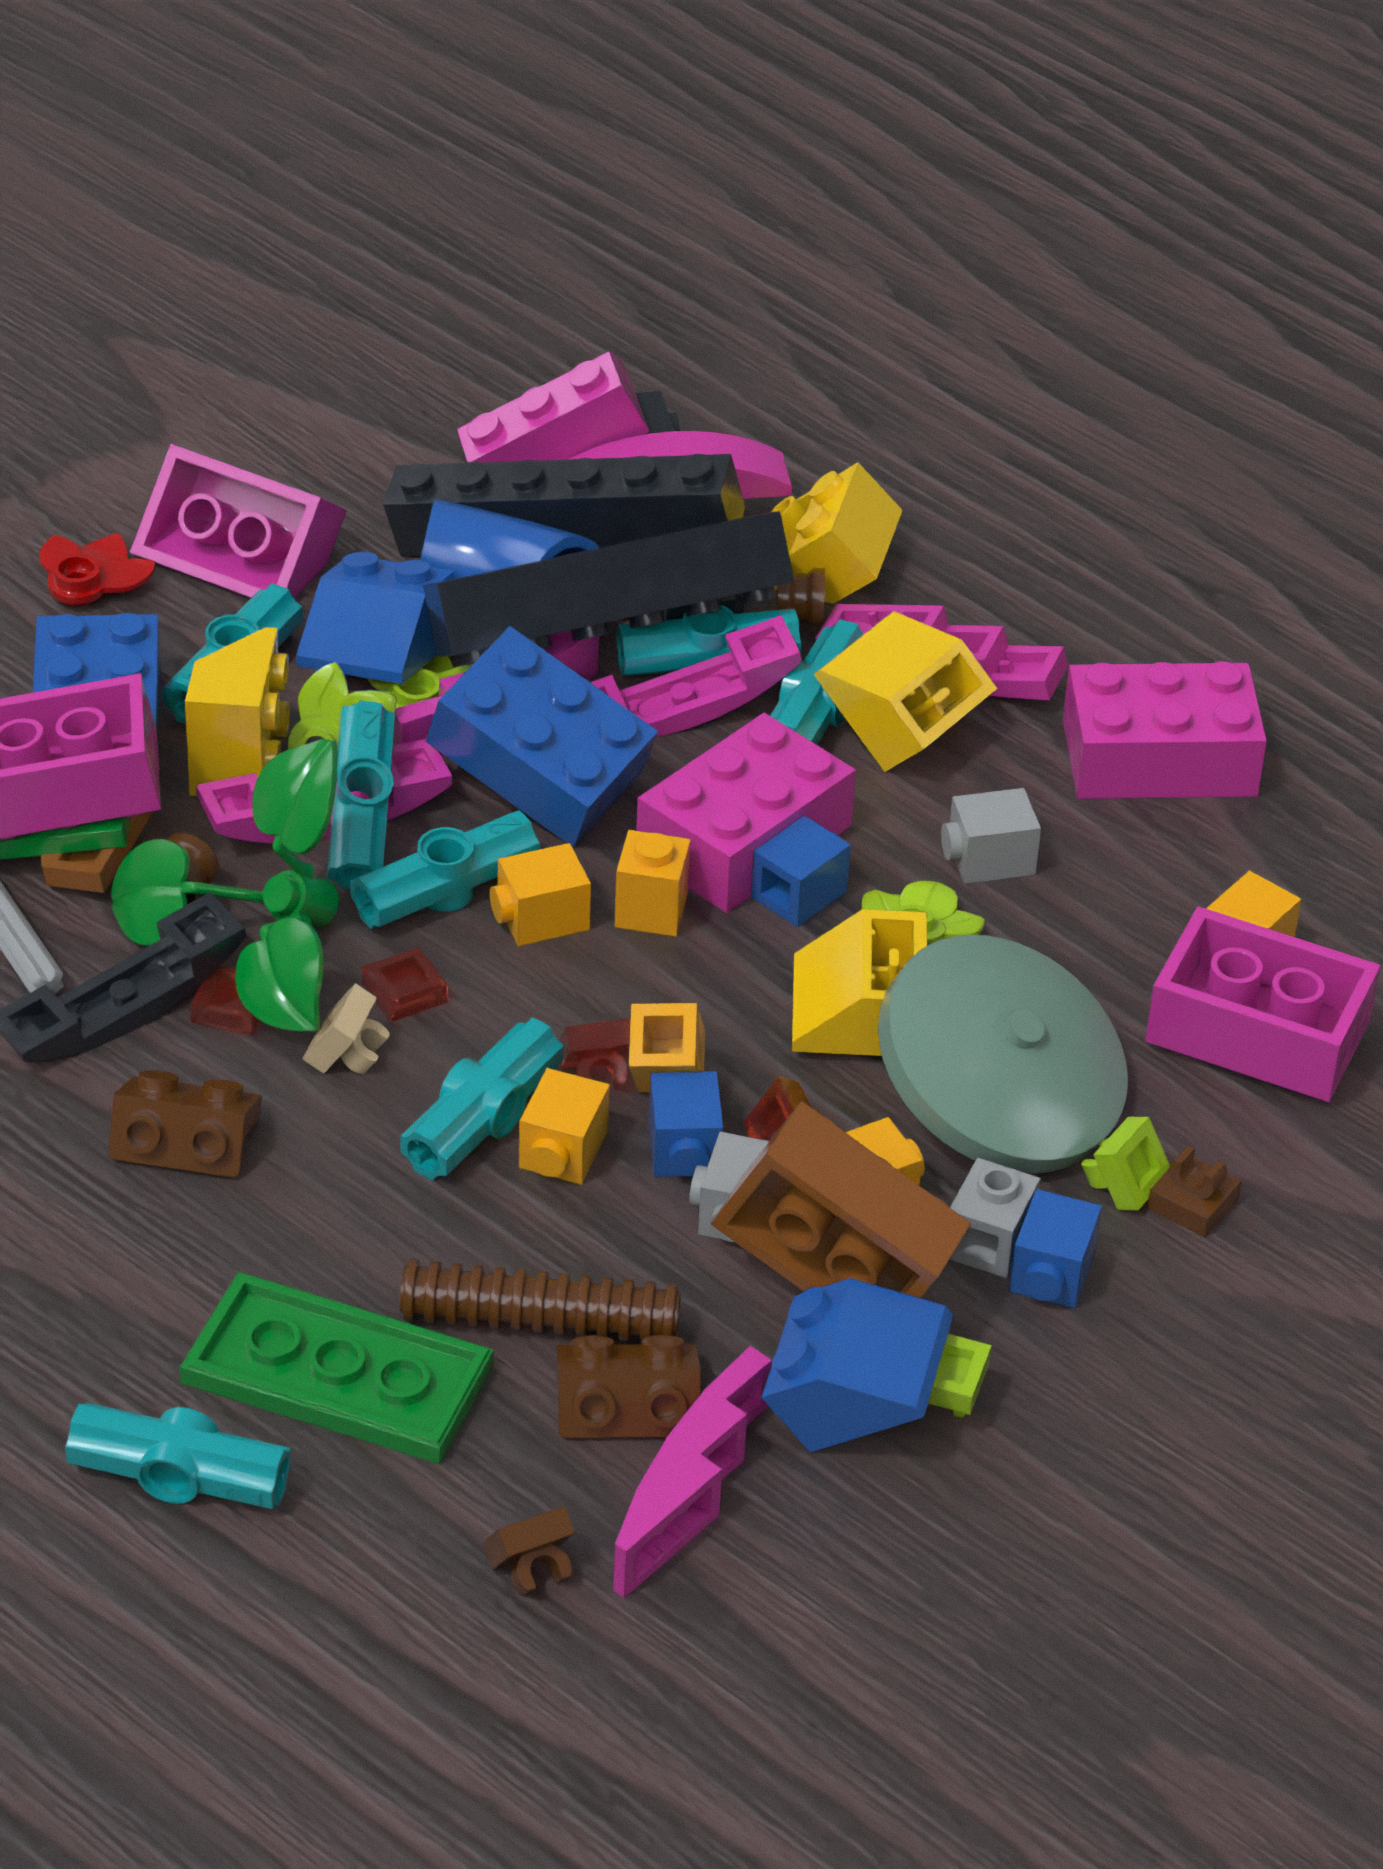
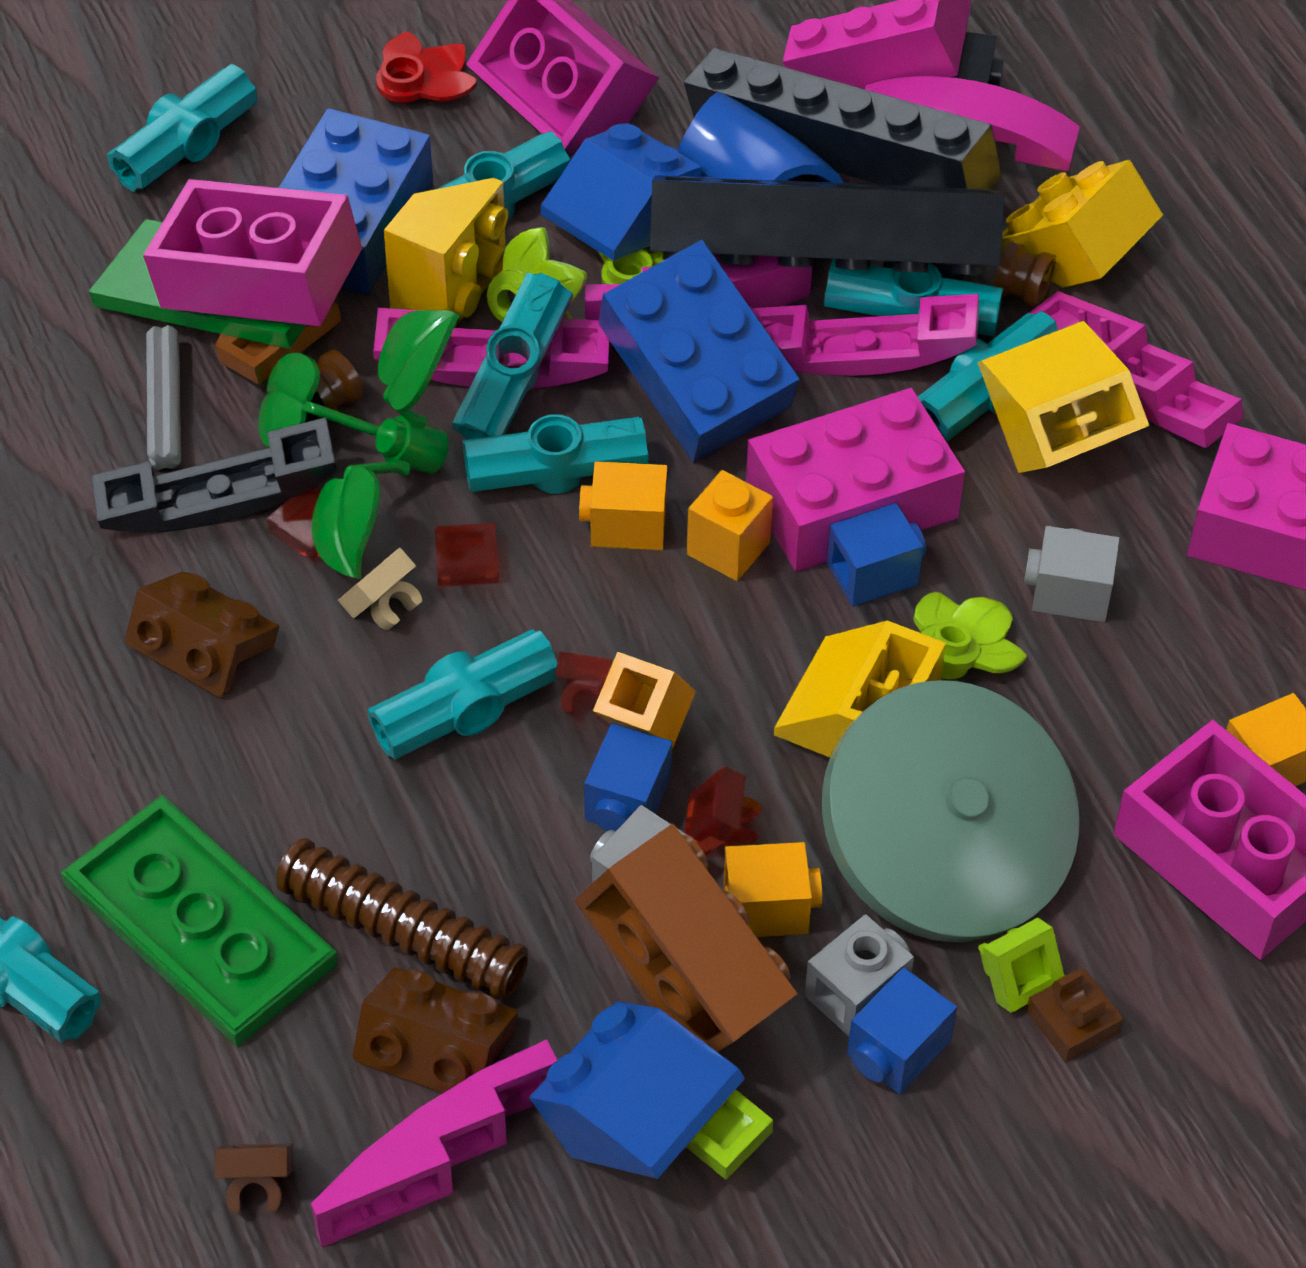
camera: 25 degrees right, 10 degrees up
(563, 1126) = (518, 747): light orange brick -> none

